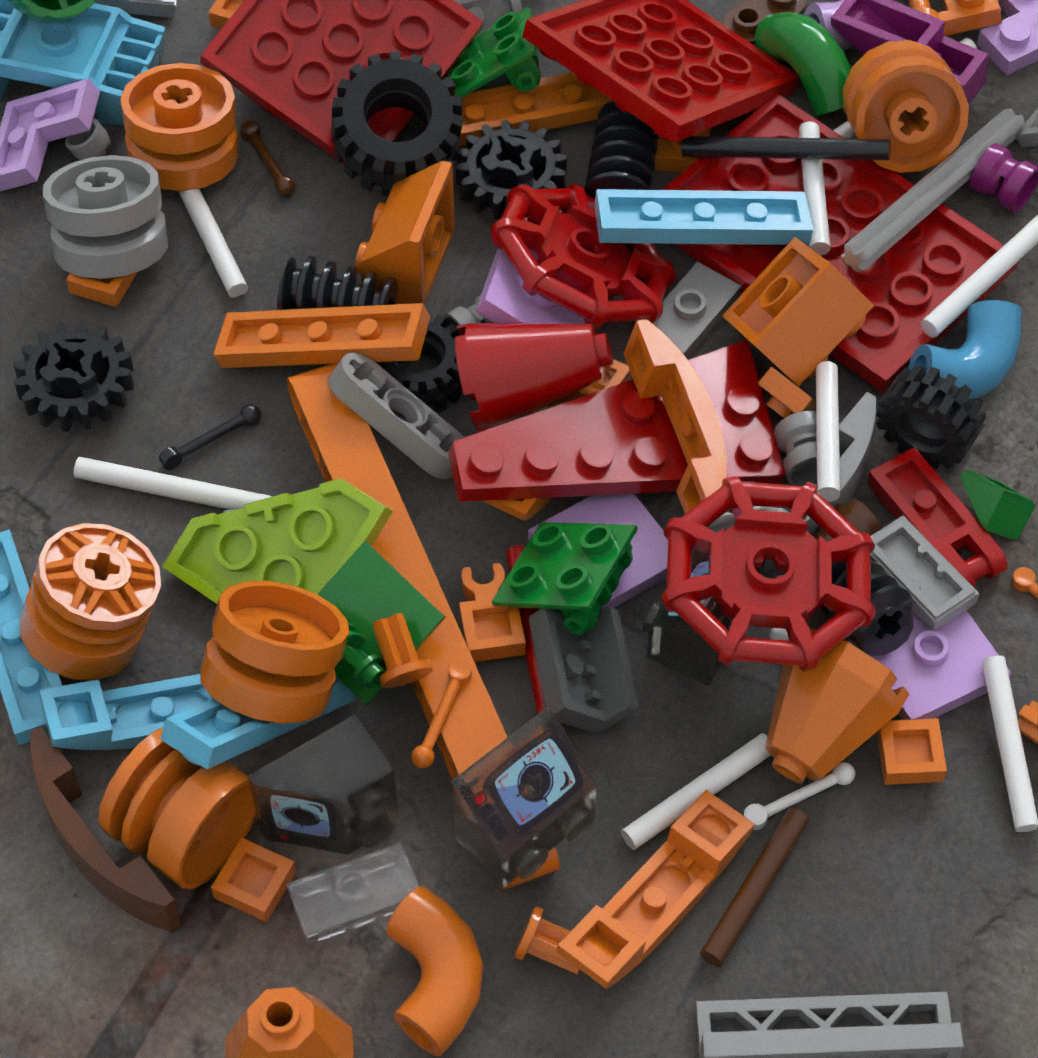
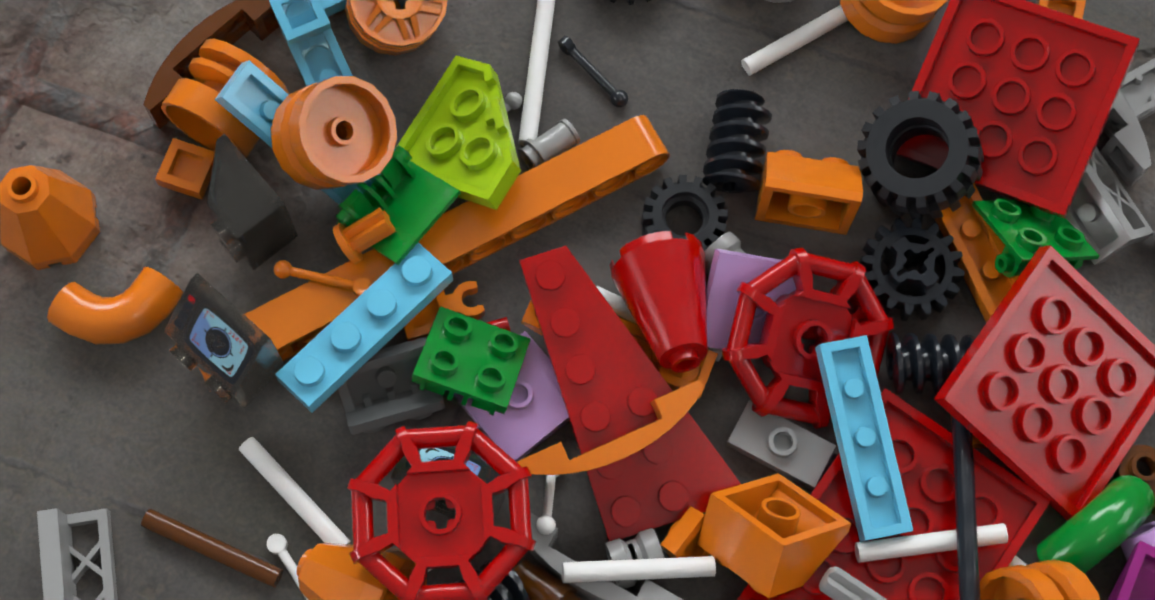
camera: 80 degrees right, 15 degrees up
(251, 132) = (866, 85): reddish brown hinge -> none
(293, 472) = (549, 144): none -> light grey pin
(322, 335) = (685, 135): orange plate -> none
(351, 893) = (185, 241): clear plate -> none
(374, 395) = (616, 171): light grey beam -> none
(515, 661) = (364, 327): none -> medium azure plate
(541, 940) = (147, 393): orange piece -> none
(660, 894) = (188, 465): orange slope -> none

